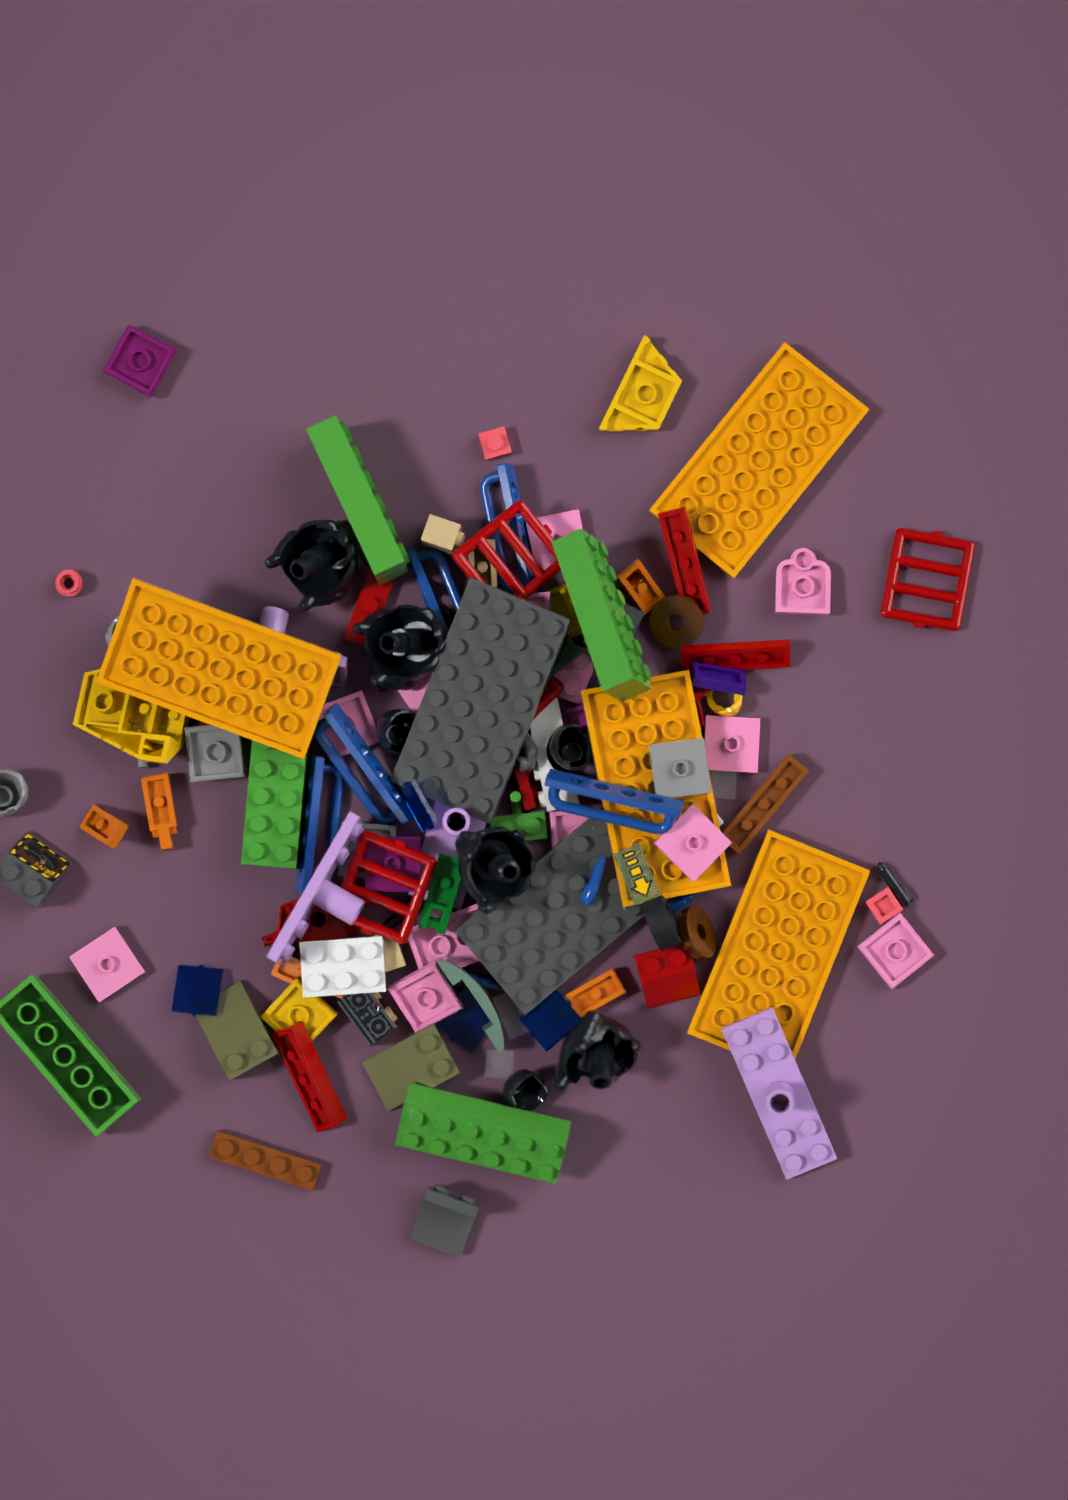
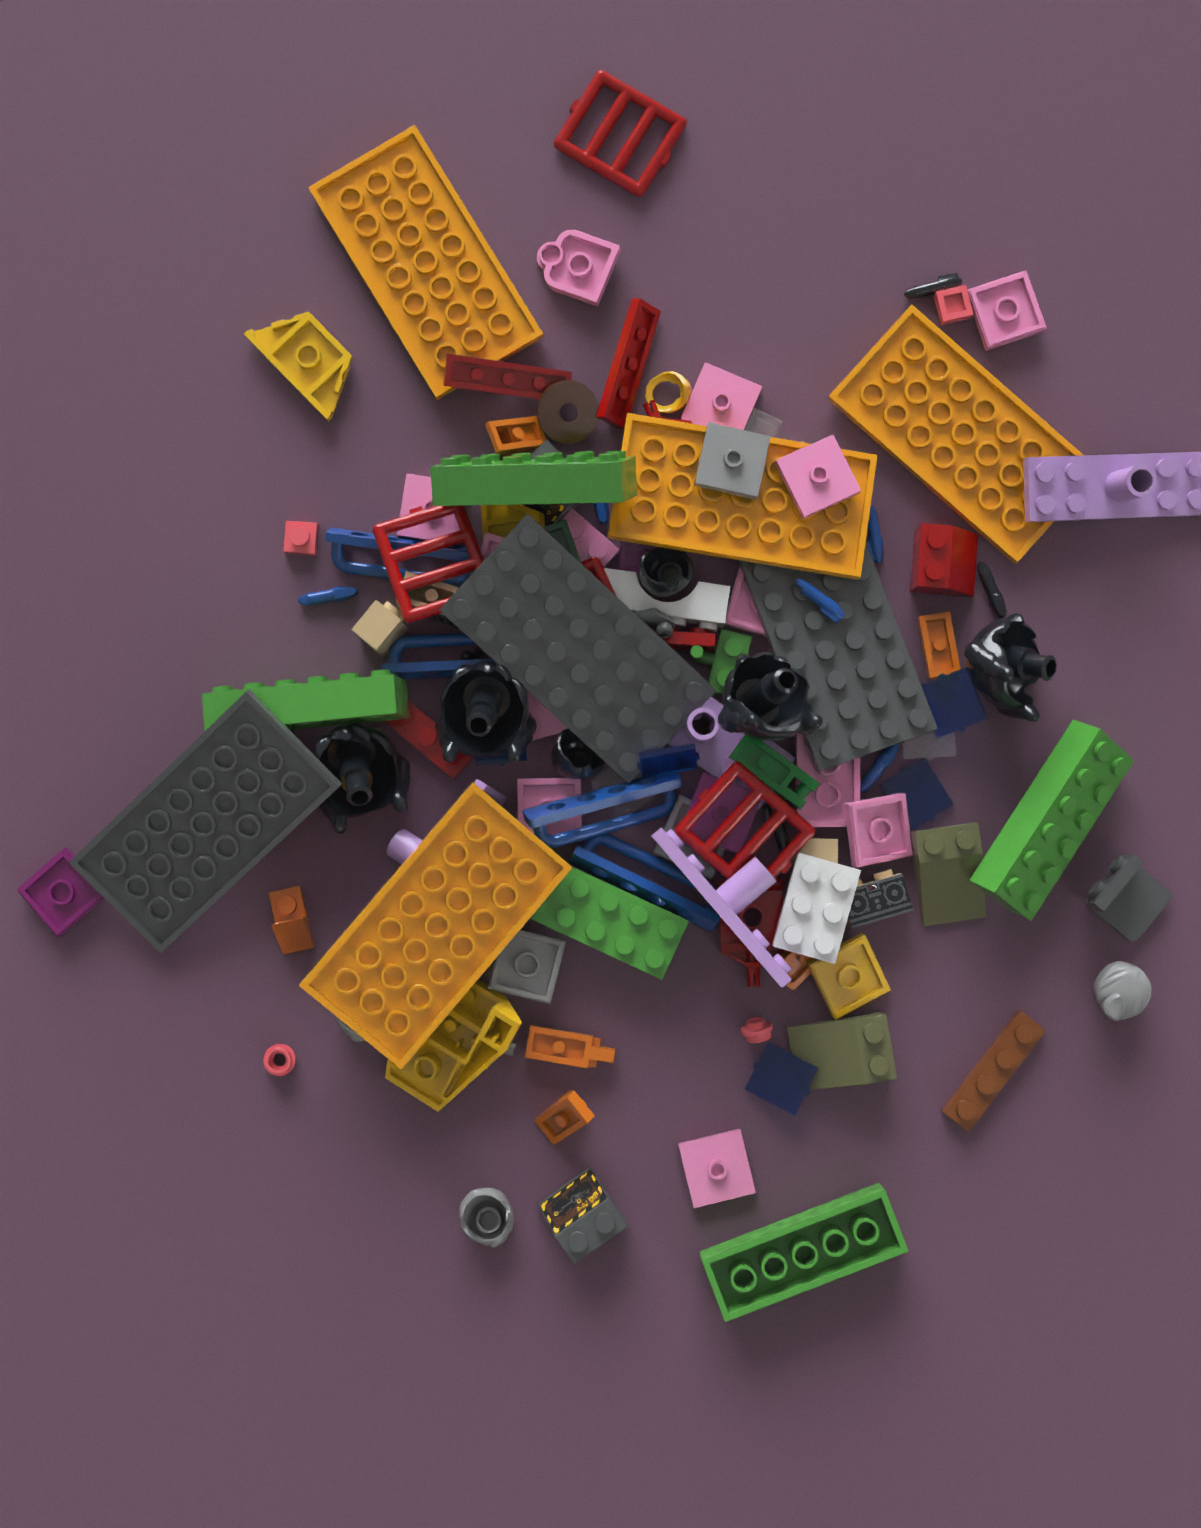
camera: 70 degrees left, 0 degrees up
(183, 551) = (291, 920): none -> orange slope
(229, 956) = (757, 1030): none -> coral plate
(235, 455) = (205, 821): none -> dark grey plate
(309, 1076) = (920, 988): red slope -> none
(366, 1239) = (1122, 990): none -> light grey hair
(455, 975) = (937, 769): sand green slope -> none
(457, 485) = (332, 595): none -> blue piece
(499, 1064) = (977, 777): clear tile -> none
(525, 1090) = (1018, 758): black hair -> none
(614, 793) = (735, 539): blue piece -> none
(636, 874) = (831, 549): clear light blue tile -> none
(654, 1025) = (994, 596): none -> black piece
(661, 922) = (894, 540): black tyre -> none
(697, 932) = (914, 510): reddish brown tile -> none
(718, 678) = (646, 388): dark purple tile -> none
(764, 803) = (797, 388): dark orange plate -> none

